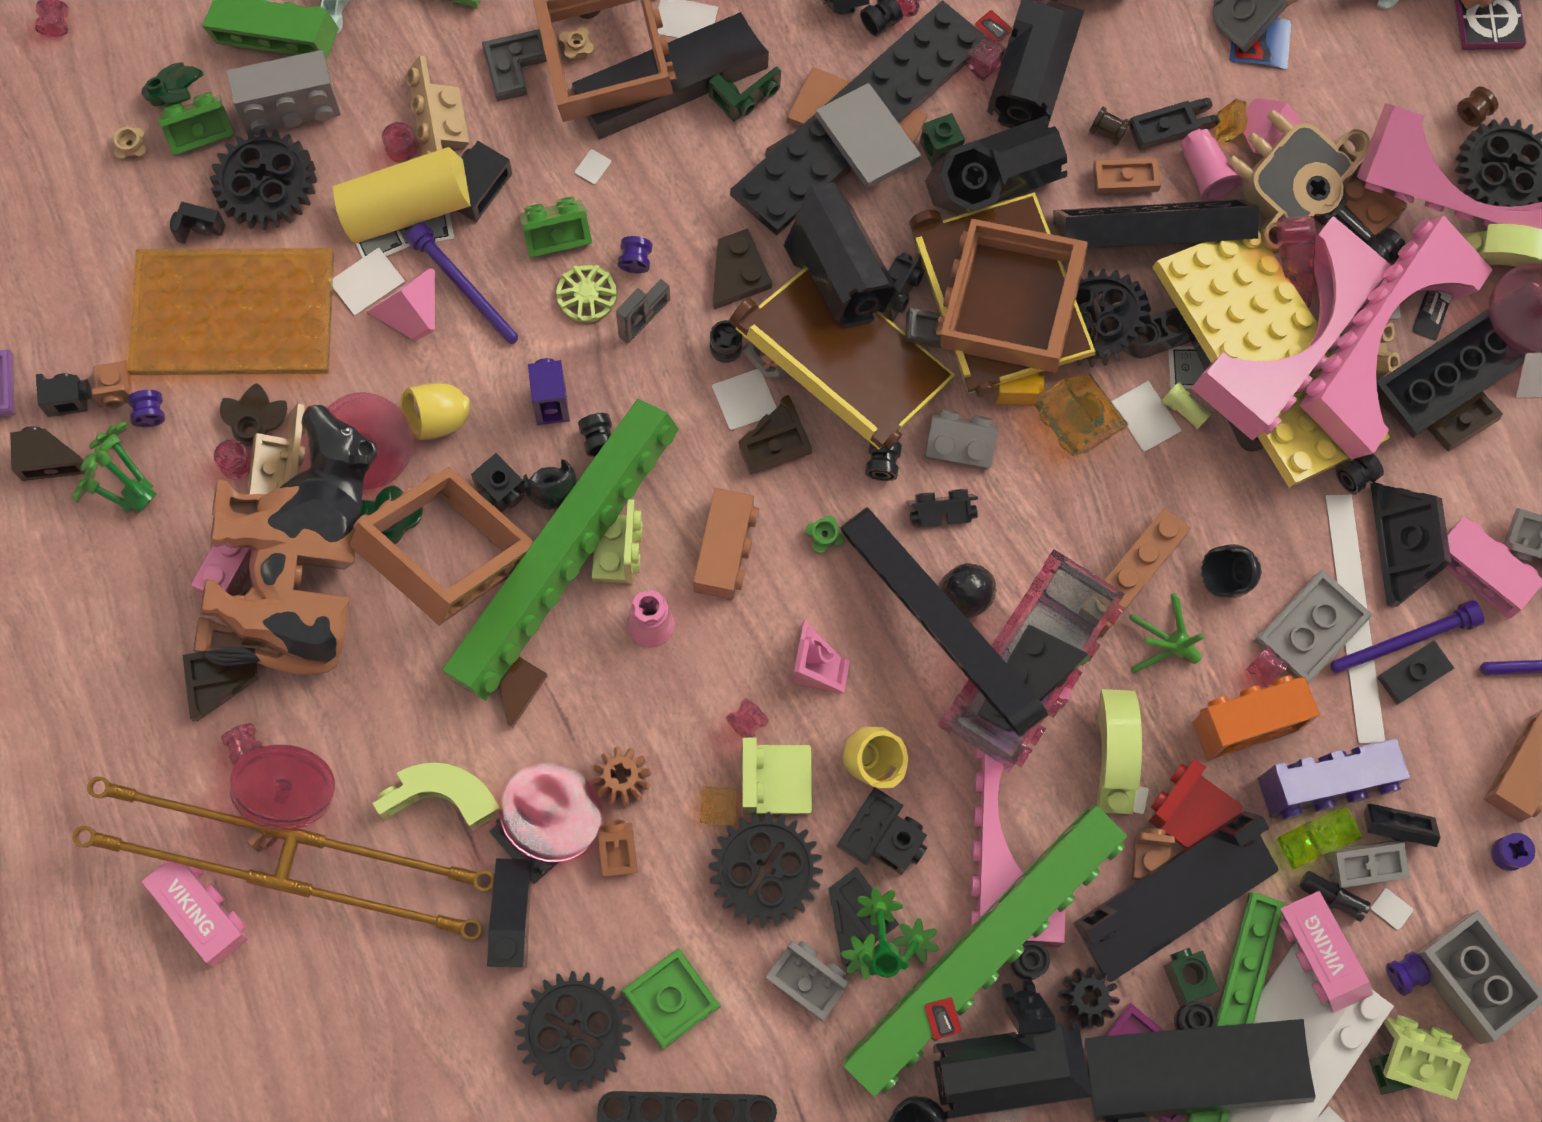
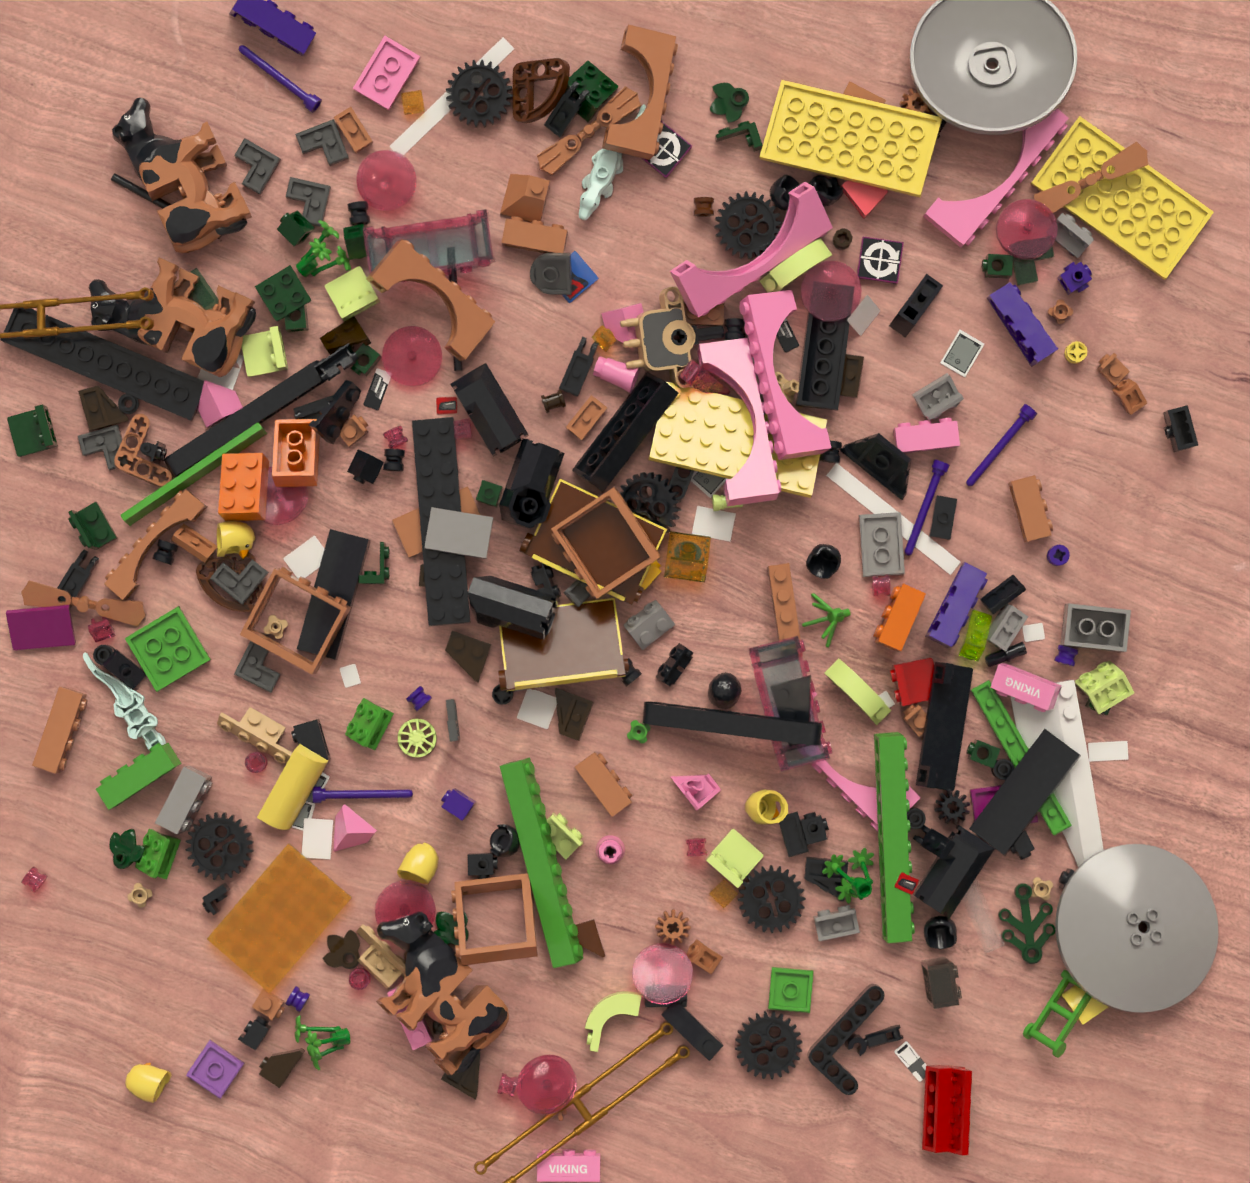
camera: 45 degrees left, 15 degrees up
(596, 432) = (493, 794): black wheel -> none

